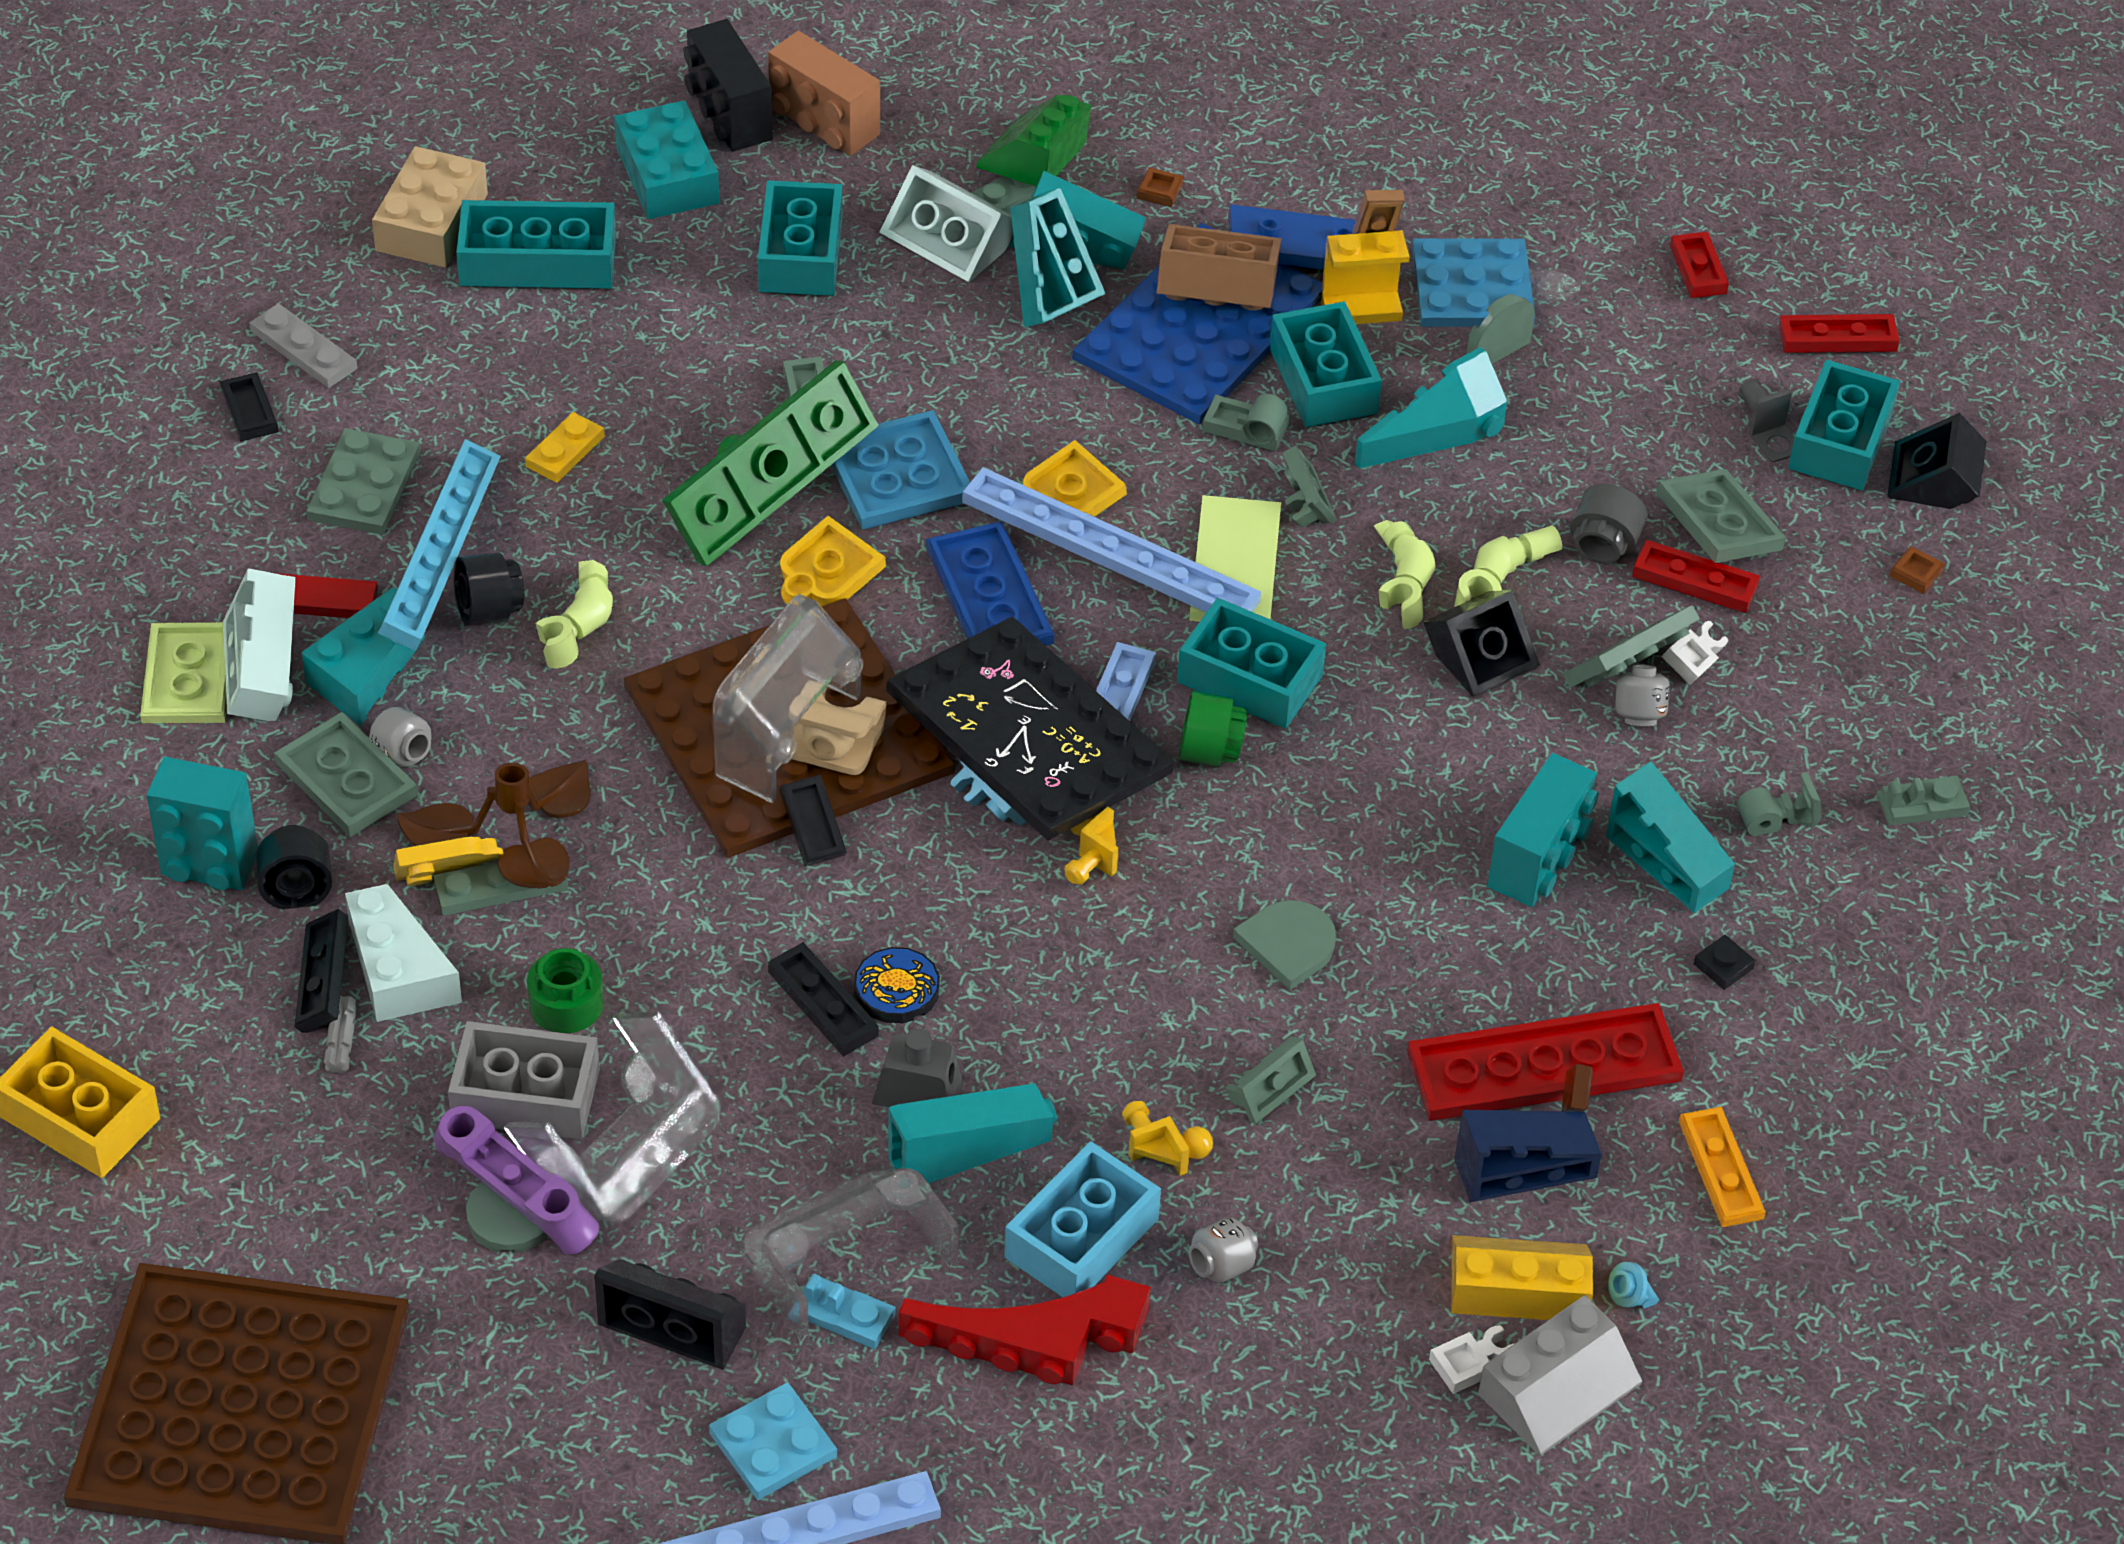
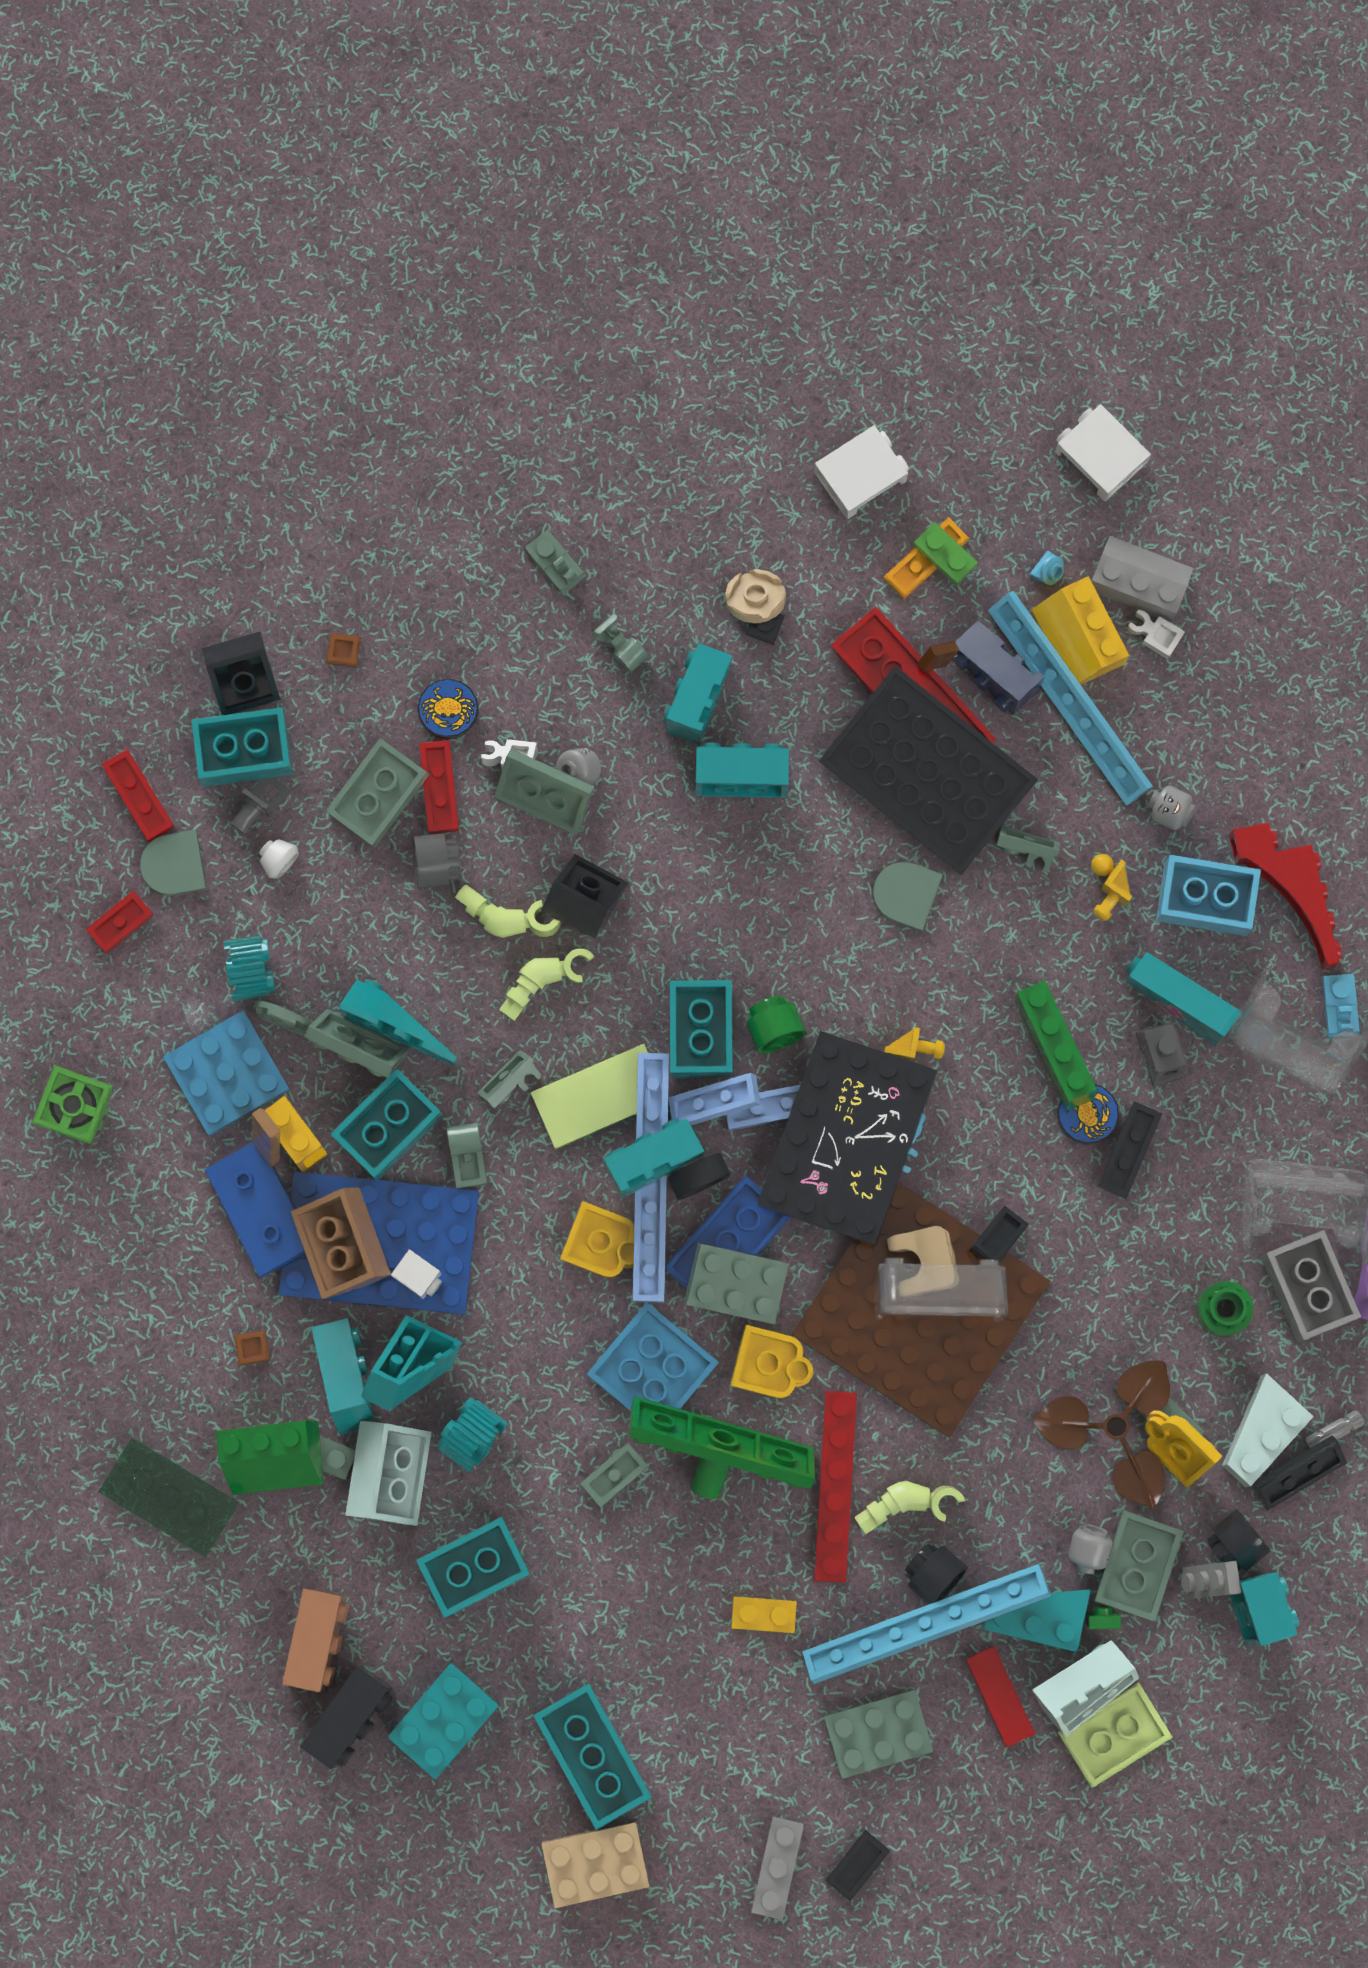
camera: 120 degrees left, 30 degrees up
(273, 793) = (1211, 1580): none -> light grey plate
(314, 707) = (1103, 1618): none -> green plate
(651, 564) = (835, 1487): none -> red plate
(936, 566) = (736, 1283): none -> sand green plate
(938, 286) = (472, 1435): none -> teal brick
(1000, 974) = (1055, 1045): none -> green brick
(1052, 66) = (169, 1497): none -> clear green plate
(1081, 584) = (699, 1176): none -> black tyre
(1128, 525) = (652, 1157): none -> teal wedge
(1141, 312) = (417, 1275): none -> white brick
(1157, 635) = (716, 1099): none -> light blue plate
(1421, 1219) = (1070, 698): none -> medium azure plate
(1423, 359) = (356, 1043): none -> sand green plate
(1432, 1017) = (928, 770): none -> black plate
(1515, 146) = (73, 1105): none -> bright green piece
(1578, 325) = (248, 969): none -> teal brick
(1693, 408) = (278, 857): none -> white cone
(1714, 1176) = (945, 554): none -> bright green plate
(1739, 334) = (174, 864): none -> sand green tile
(1763, 1416) = (1102, 451): none -> white panel
(1767, 961) = (755, 596): none -> tan tile
(1789, 627) = (448, 708): none -> tile
(1880, 1143) = (860, 470): none -> white panel

